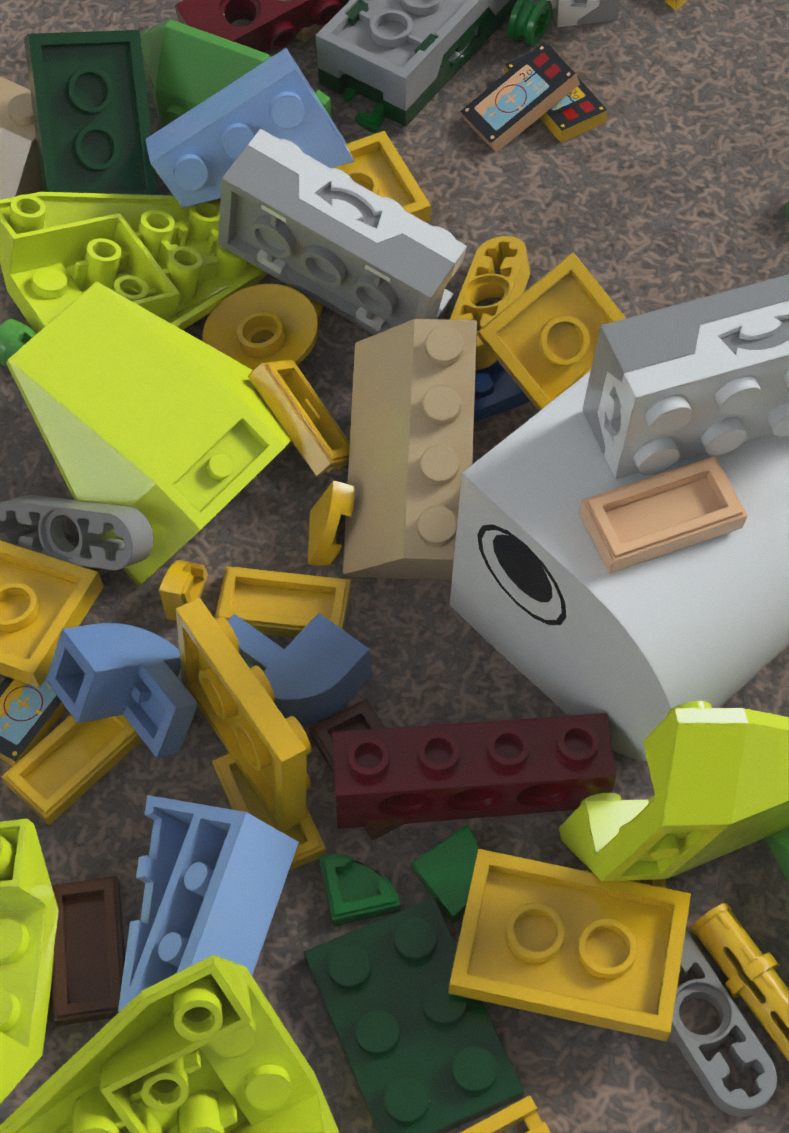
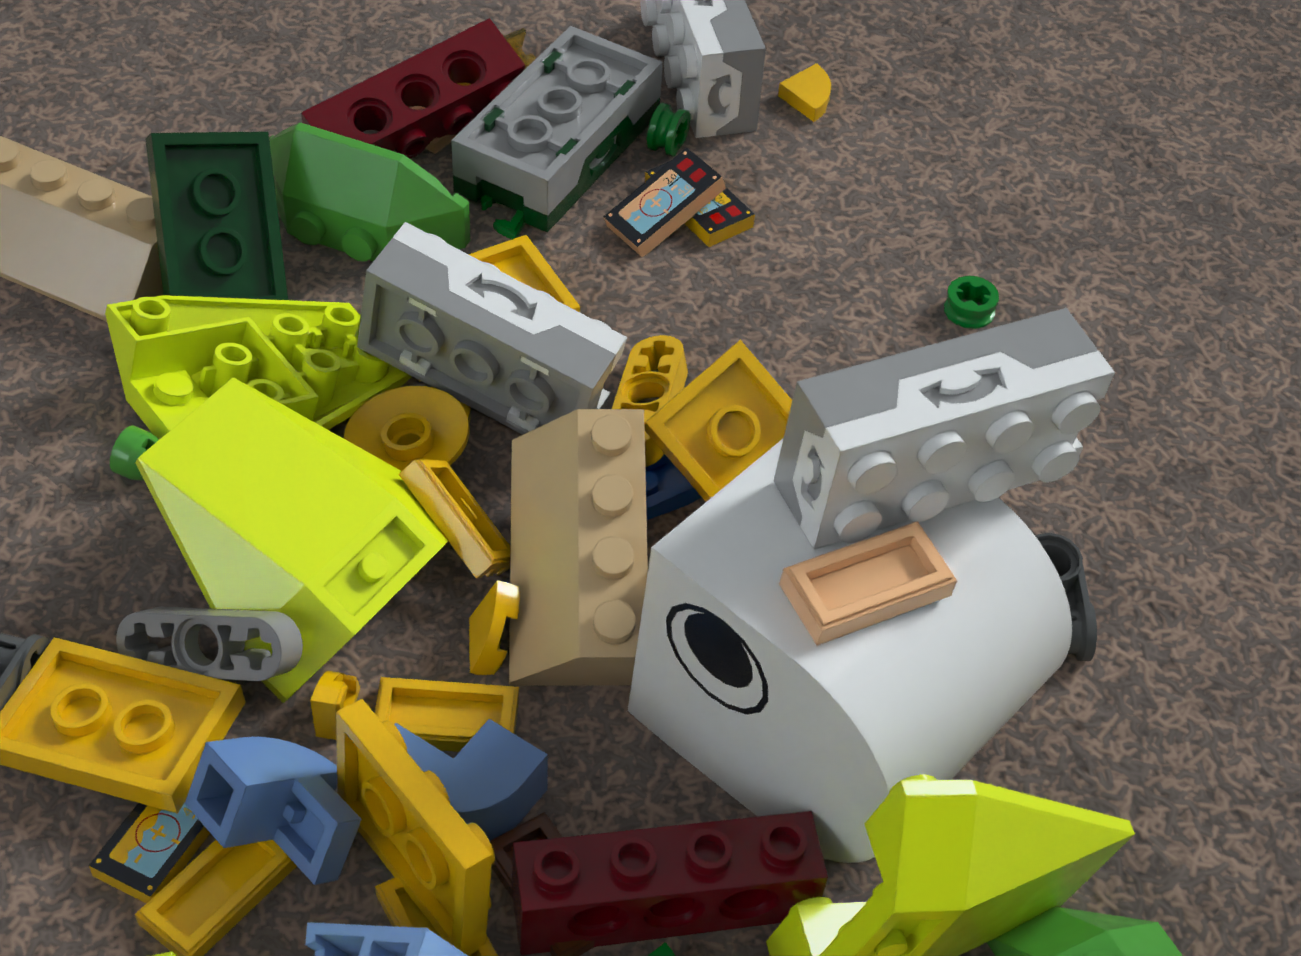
camera: 10 degrees left, 10 degrees down
(209, 138) = (339, 245): light blue wedge -> none

